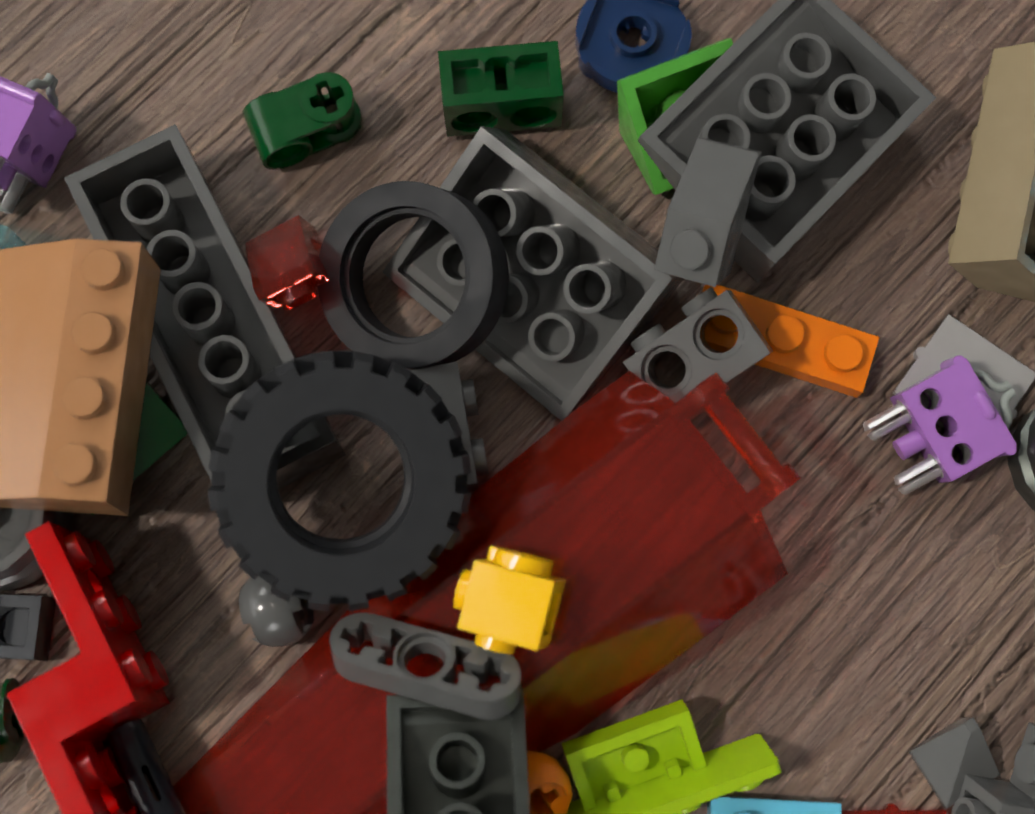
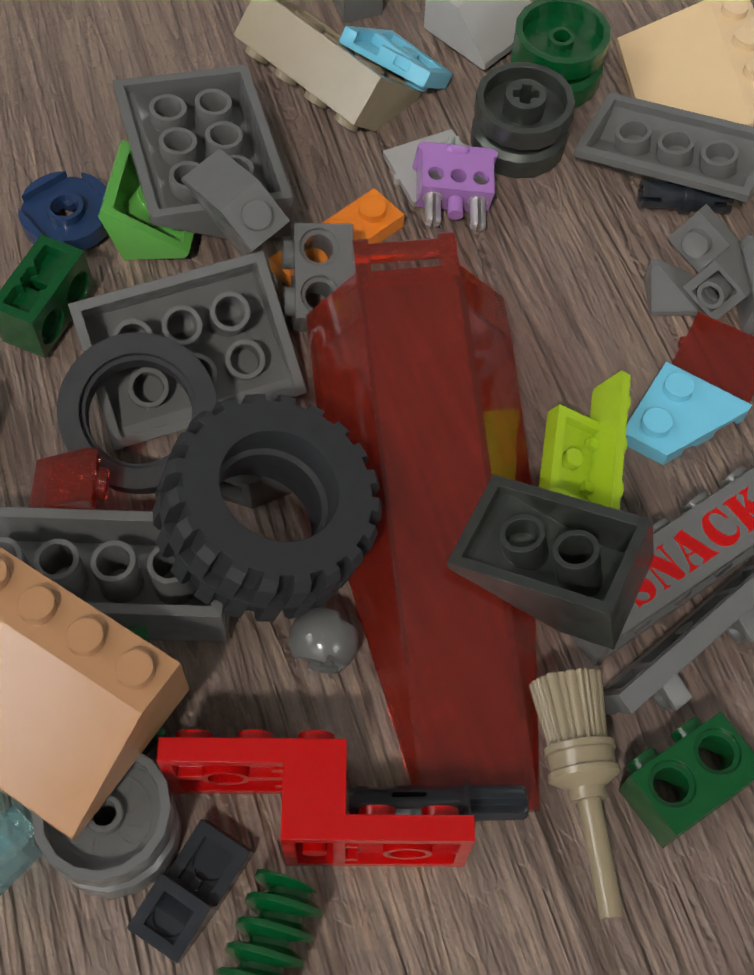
camera: 65 degrees left, 15 degrees down
(439, 690) = (478, 490): dark grey beam -> none
(509, 600) = (429, 437): yellow brick -> none

